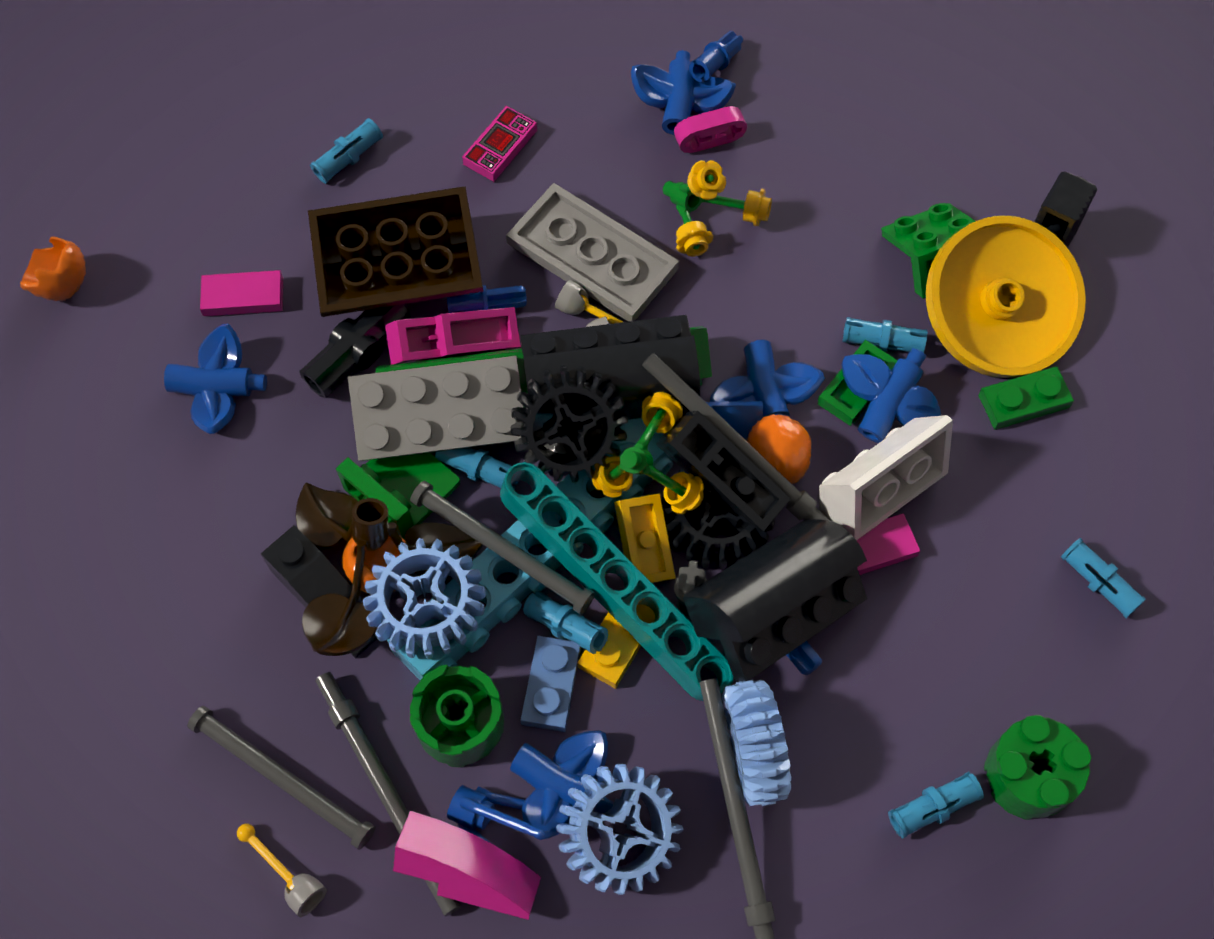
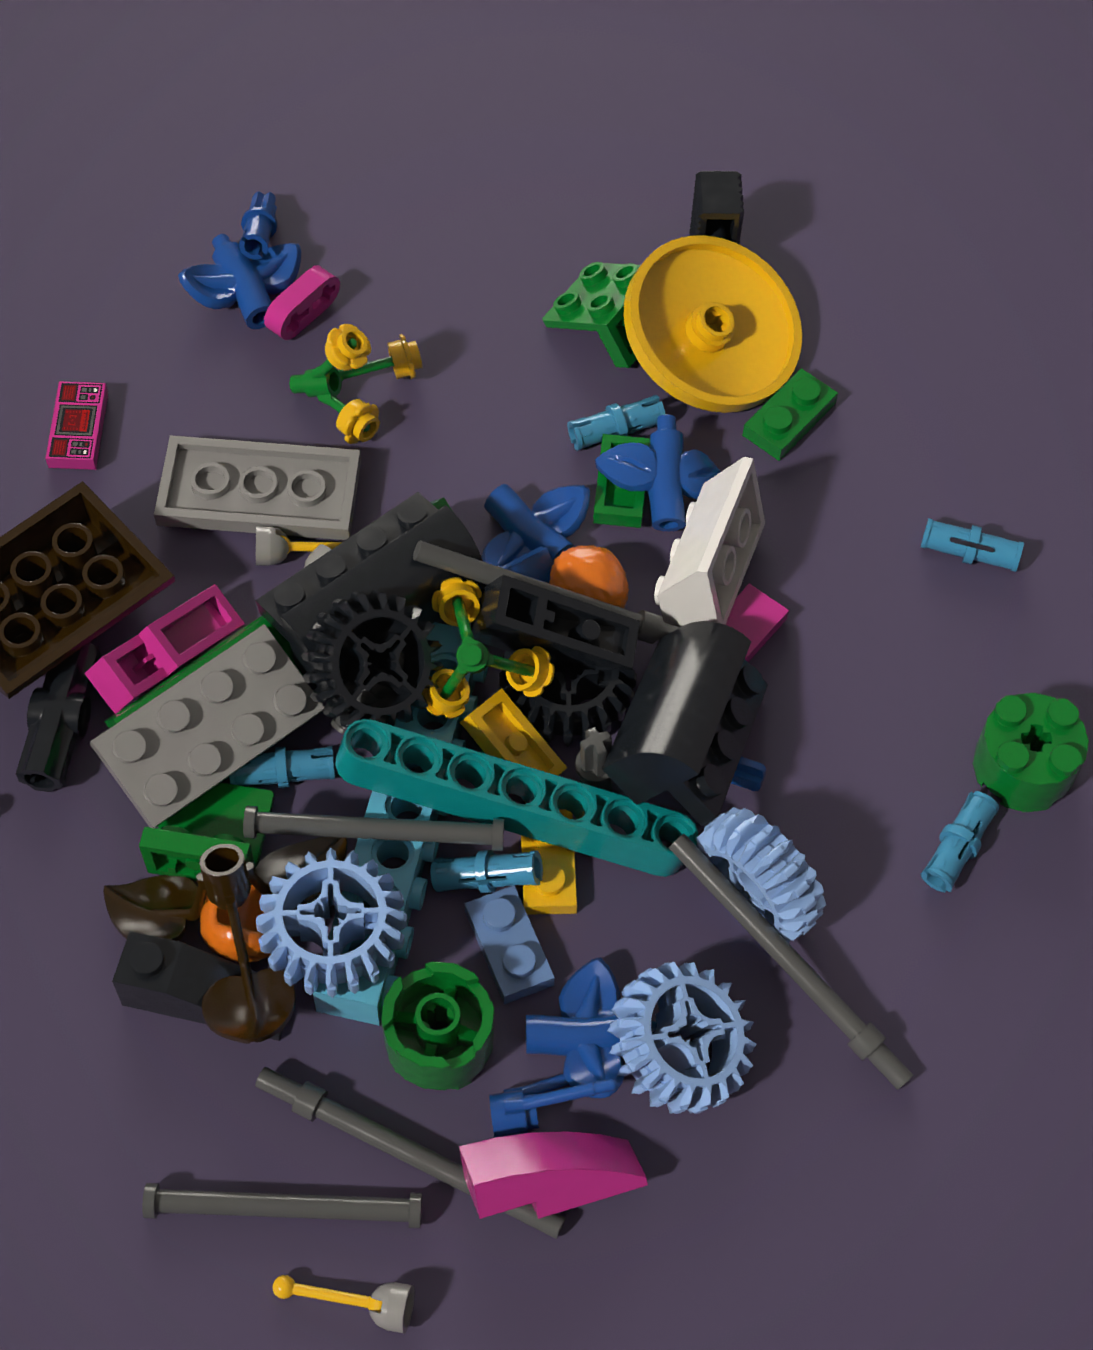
camera: 35 degrees left, 5 degrees down
(488, 299) = (183, 589): blue axle -> none

